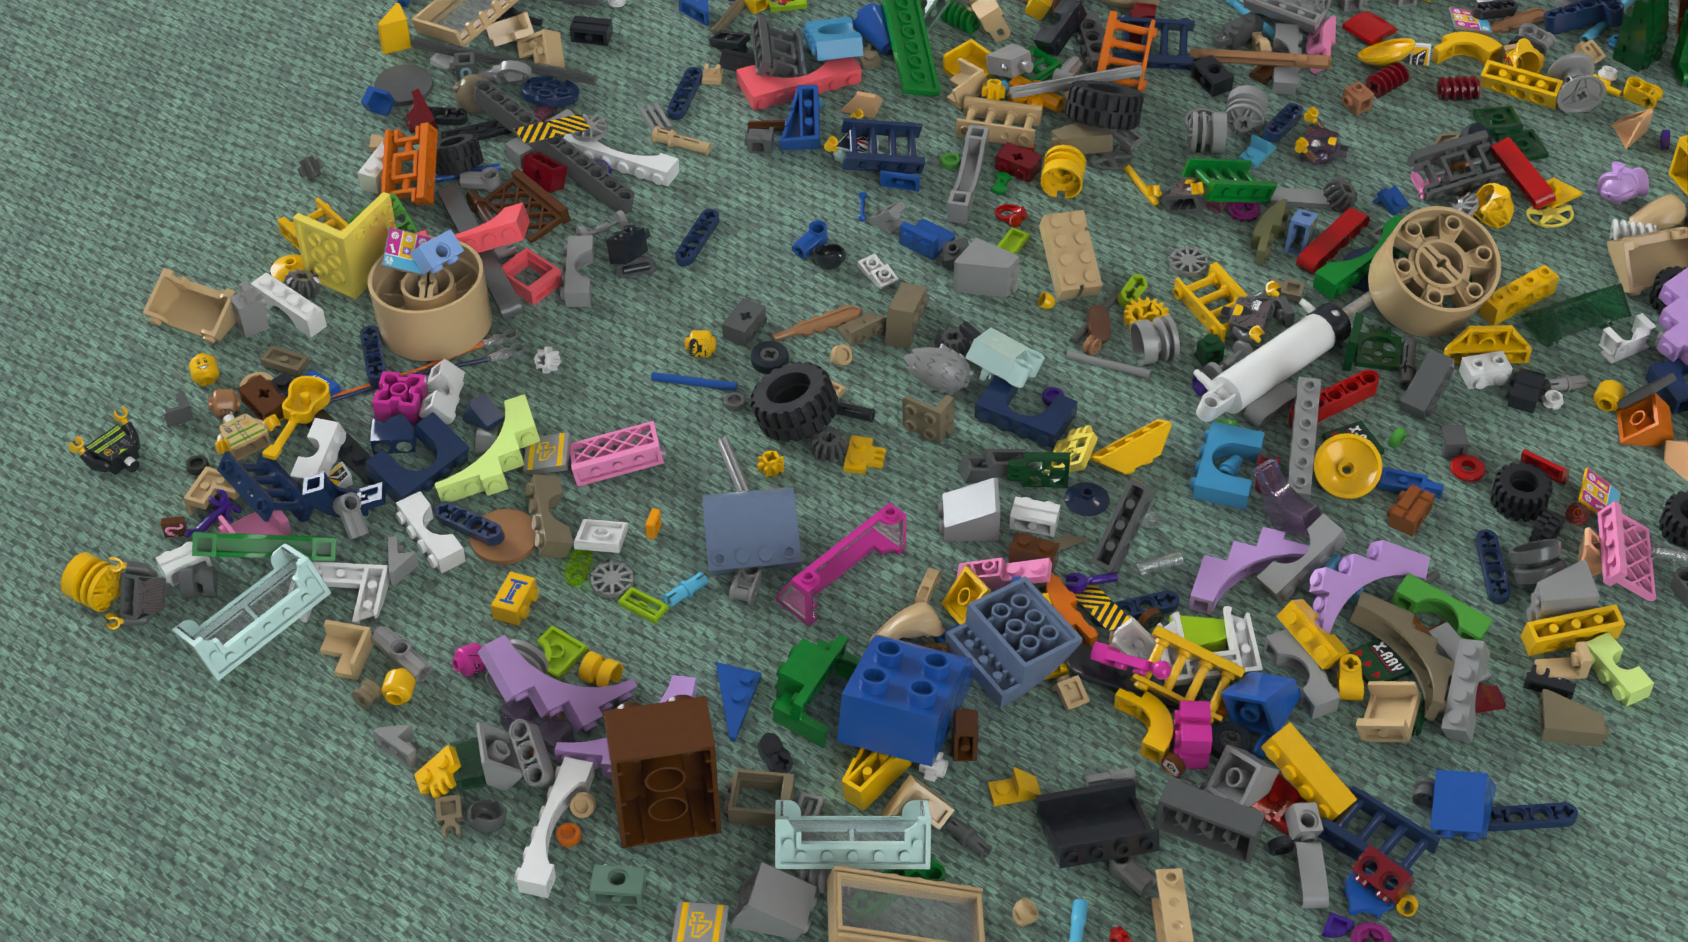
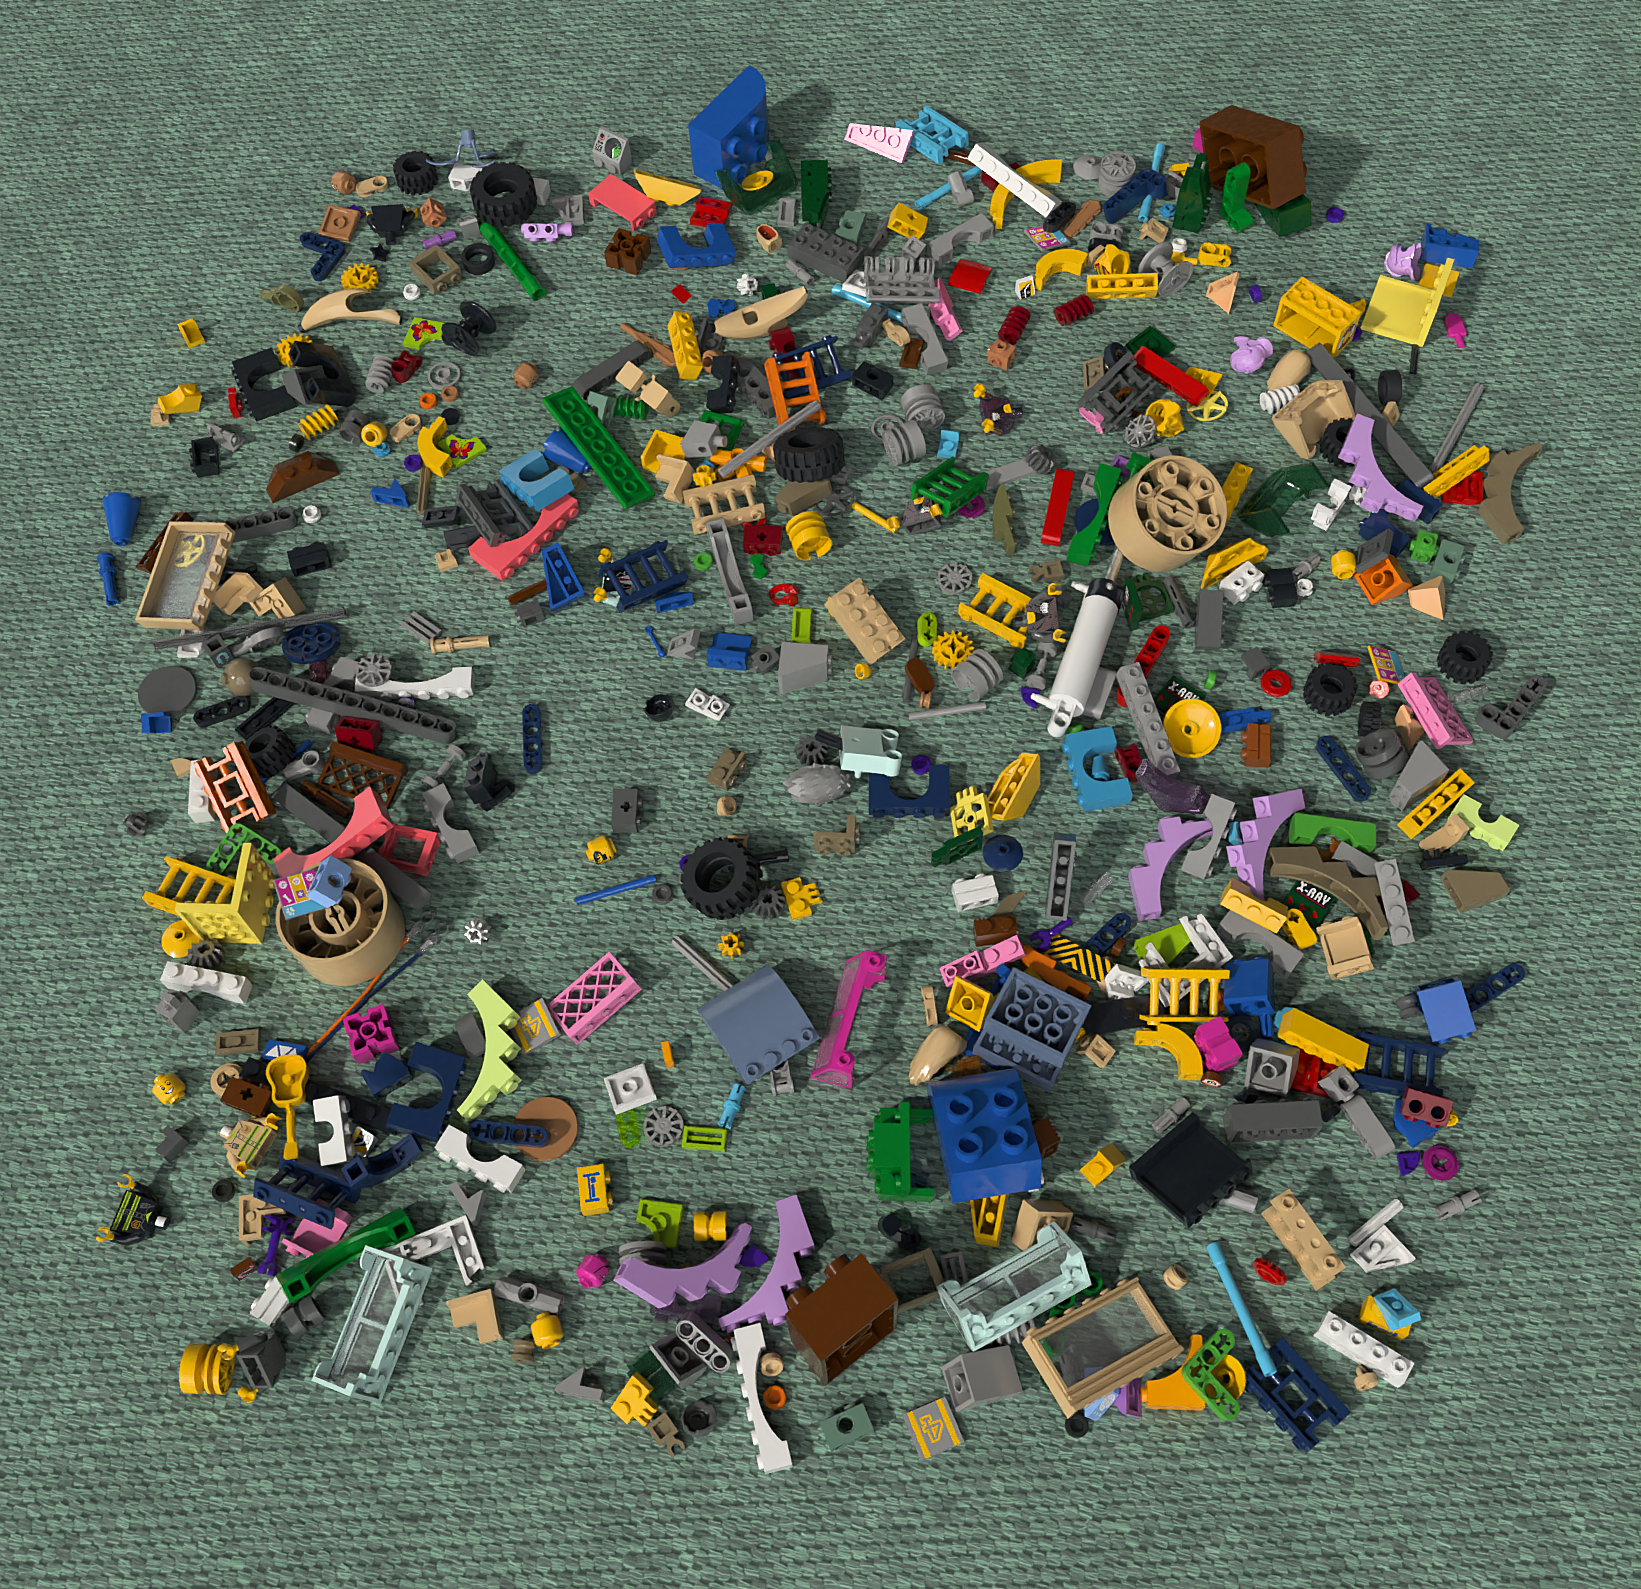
camera: 25 degrees left, 15 degrees up
(191, 307) = (117, 1027): tan windscreen -> none
(224, 402) = (210, 1115): medium nougat head -> none
(352, 517) = (403, 1180): light grey piece -> none
(372, 355) = (318, 997): dark blue beam -> none
(394, 31) = (127, 640): yellow slope -> none
(419, 113) = (209, 724): dark red arch -> none
(447, 382) = (404, 997): white arch -> none
(483, 413) = (457, 1016): dark blue slope -> none
(551, 537) = (590, 1112): dark tan arch -> none
(552, 128) = (344, 689): sticker -> none
(682, 93) = (432, 590): dark blue beam -> none
(737, 692) = (831, 1182): blue wing -> none
(772, 349) = (668, 844): black bush -> none
(811, 239) = (633, 699): blue piece -> none
(819, 324) = (695, 771): medium nougat sword -> none
(867, 102) = (598, 535): light nougat slope -> none
(905, 314) = (759, 739): dark tan wedge -> none
(971, 512) = (925, 916): slope -> none
(987, 466) = (913, 857): dark grey slope -> none
(1070, 68) = (752, 431): light grey piece -> none
(1112, 657) = (1114, 1007): dark pink plate -> none
(1264, 58) = (908, 348): medium nougat piece -> none
(1282, 122) = (956, 405): dark blue beam -> none
(1304, 224) = (1031, 500): medium blue torso -> none
(1387, 52) = (1000, 296): yellow dish -> none
(1392, 200) = (1080, 444): blue bracket -> none
(1498, 119) = (1119, 328): dark green tile -> none

